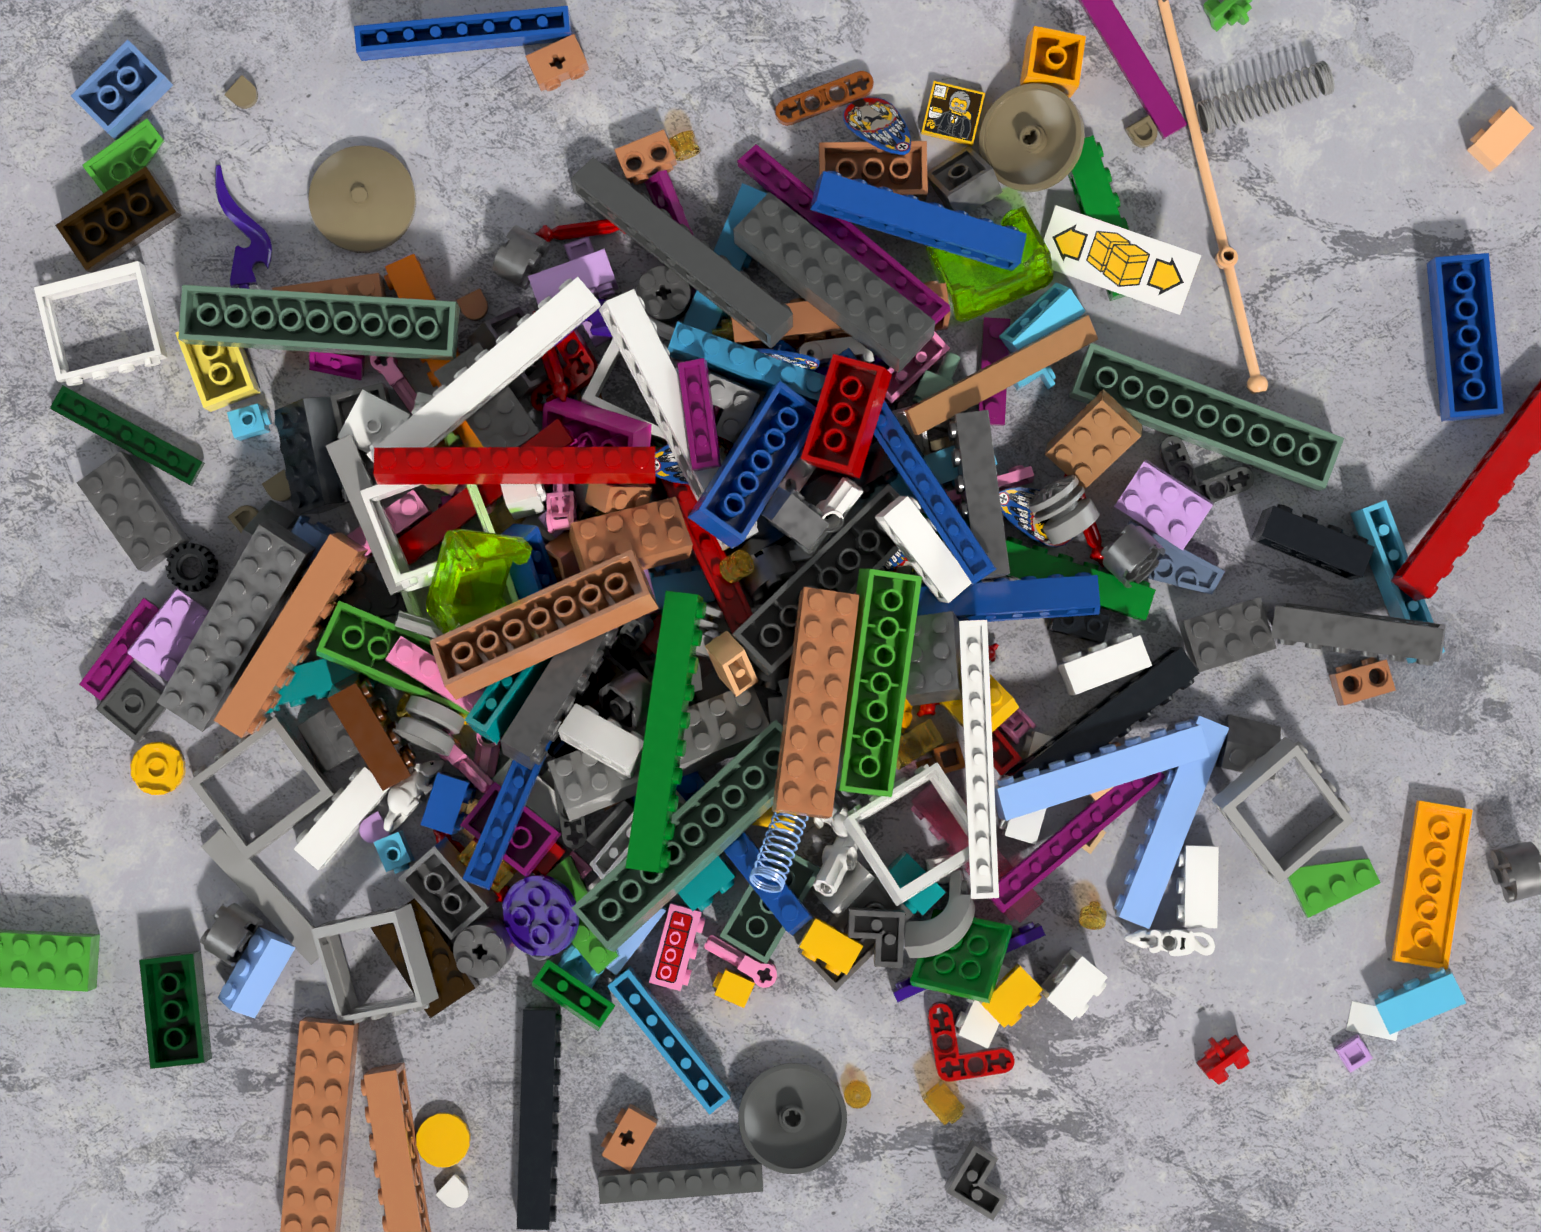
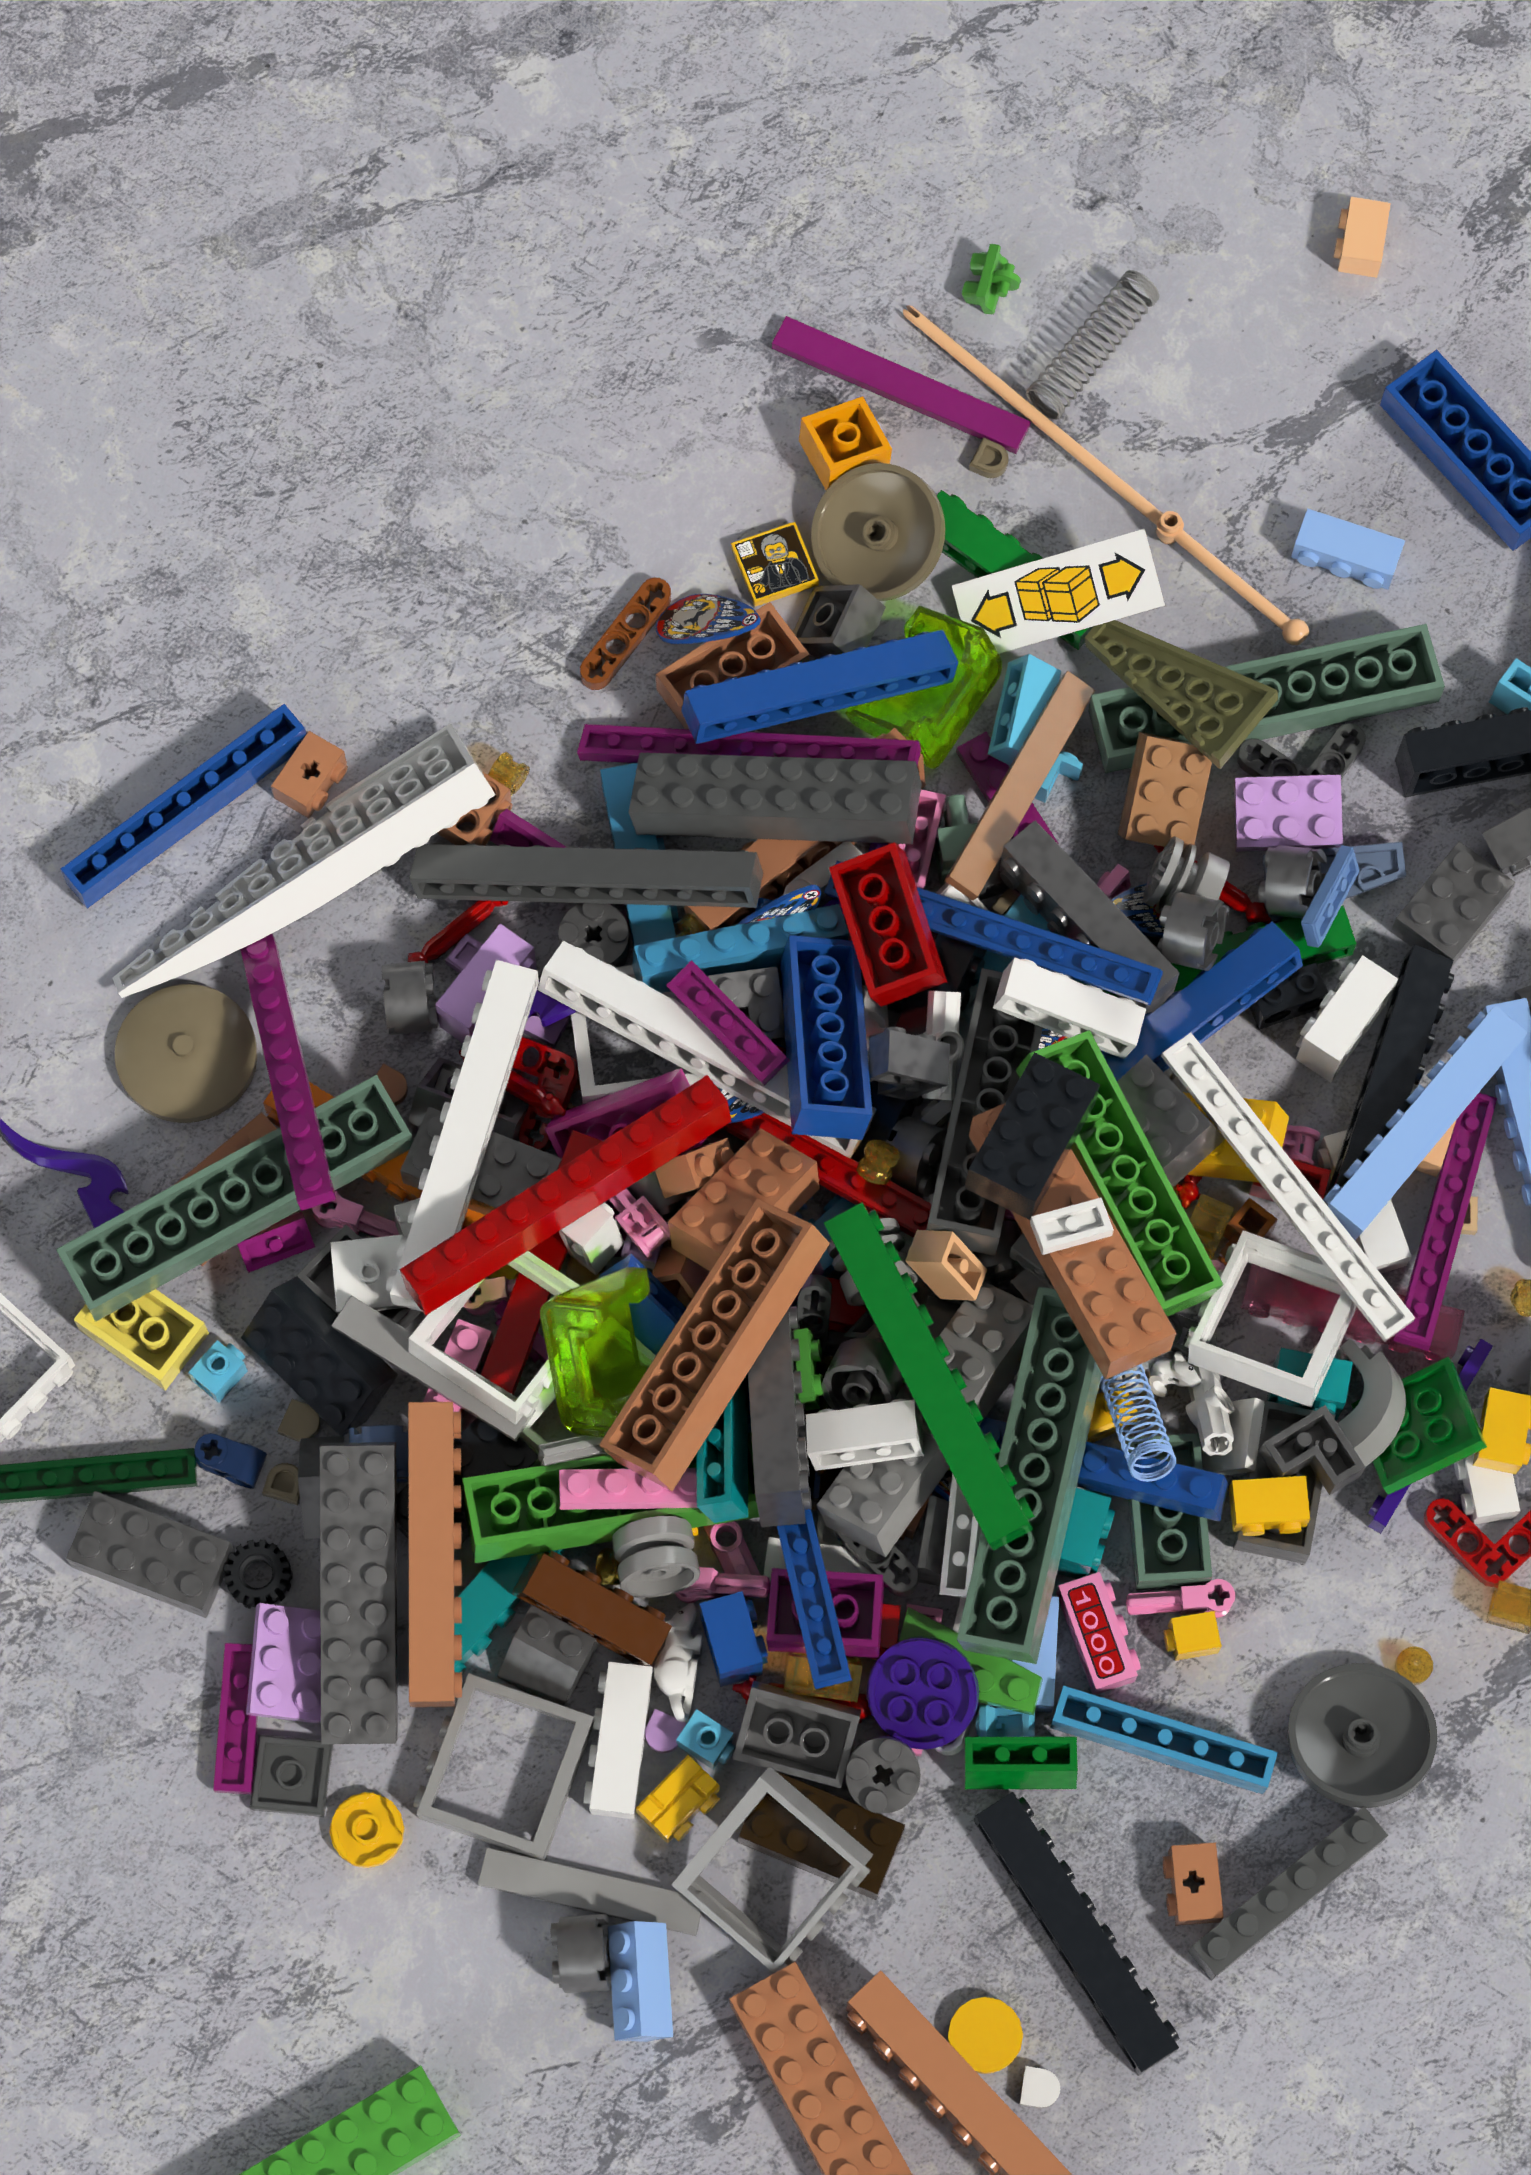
camera: 35 degrees left, 15 degrees down
(175, 1009) = (574, 2087): dark green brick -> none
(223, 486) = (237, 1460): none -> dark blue piece
(352, 877) = (678, 1800): none -> yellow brick
(403, 261) = (287, 1074): none -> magenta plate
(560, 126) = (355, 838): none -> white wedge
(599, 673) = (811, 1381): none -> bright green plate
(812, 705) = (1071, 1226): none -> white plate
(829, 628) = (1032, 1136): none -> black brick
(1039, 548) = (1192, 930): none -> flat silver brick
(1149, 580) = (1330, 896): none -> medium blue tile
(1155, 390) = (1196, 696): none -> olive wing
(1332, 350) = (1347, 549): none -> light blue brick

